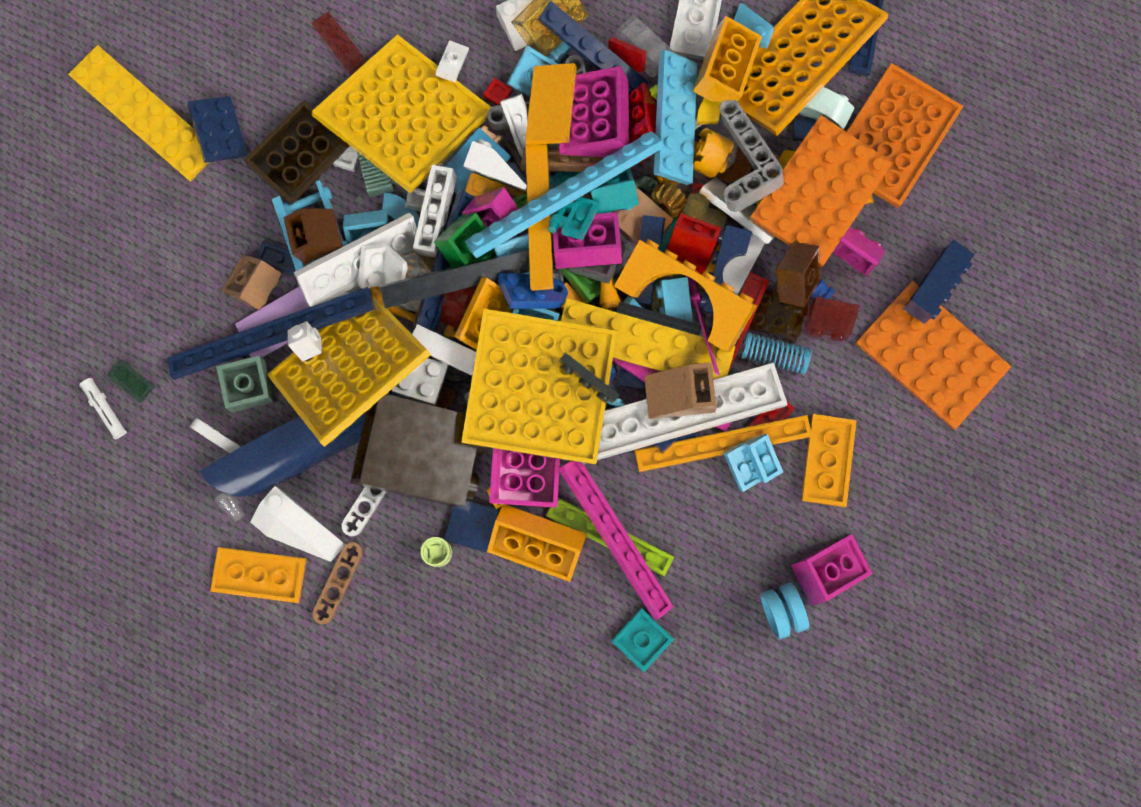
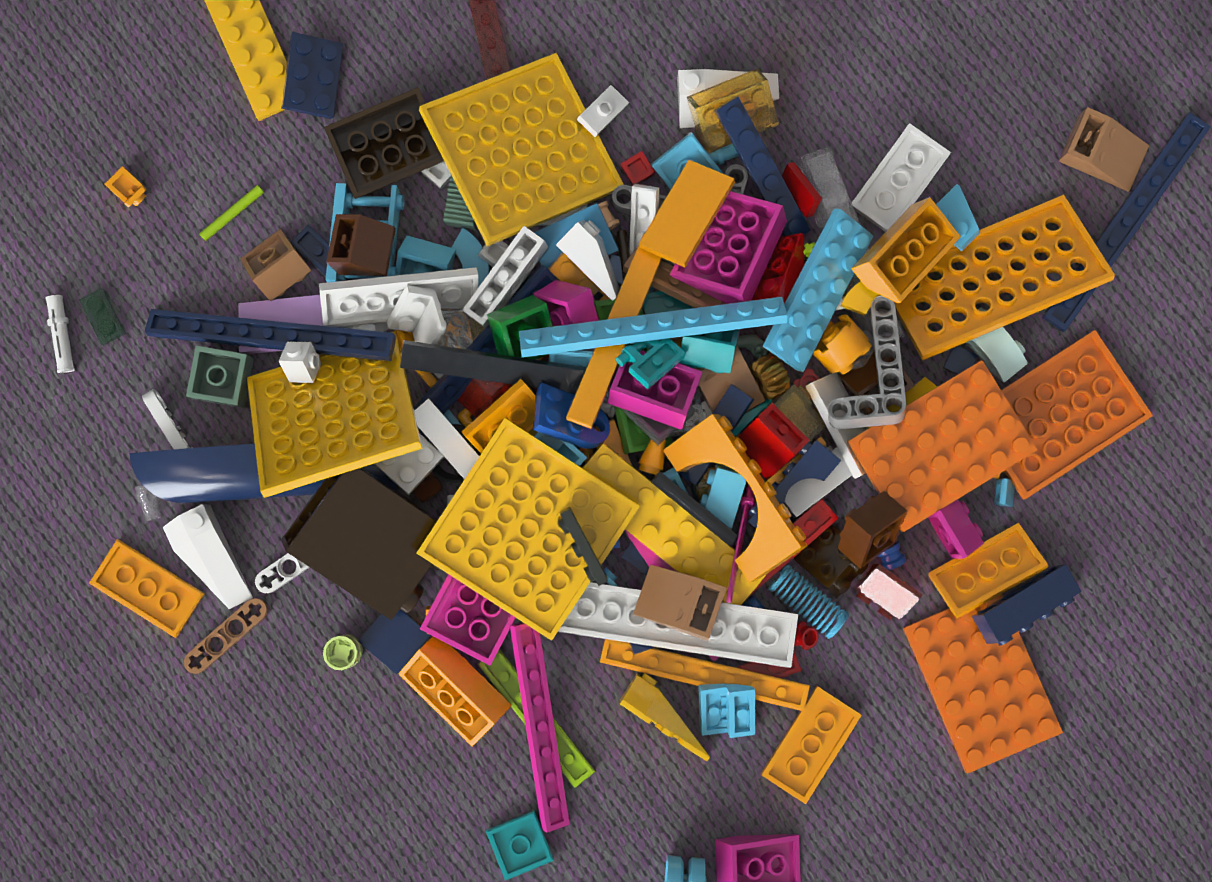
camera: 30 degrees right, 5 degrees up
(107, 273) = (126, 187): none -> light orange bracket
(199, 258) = (232, 212): none -> lime bar
(695, 485) = (652, 706): none -> yellow wedge
(787, 380) = (806, 636): none -> red plate
(882, 209) = (1004, 492): none -> medium azure slope
(898, 271) = (988, 570): none -> light orange plate

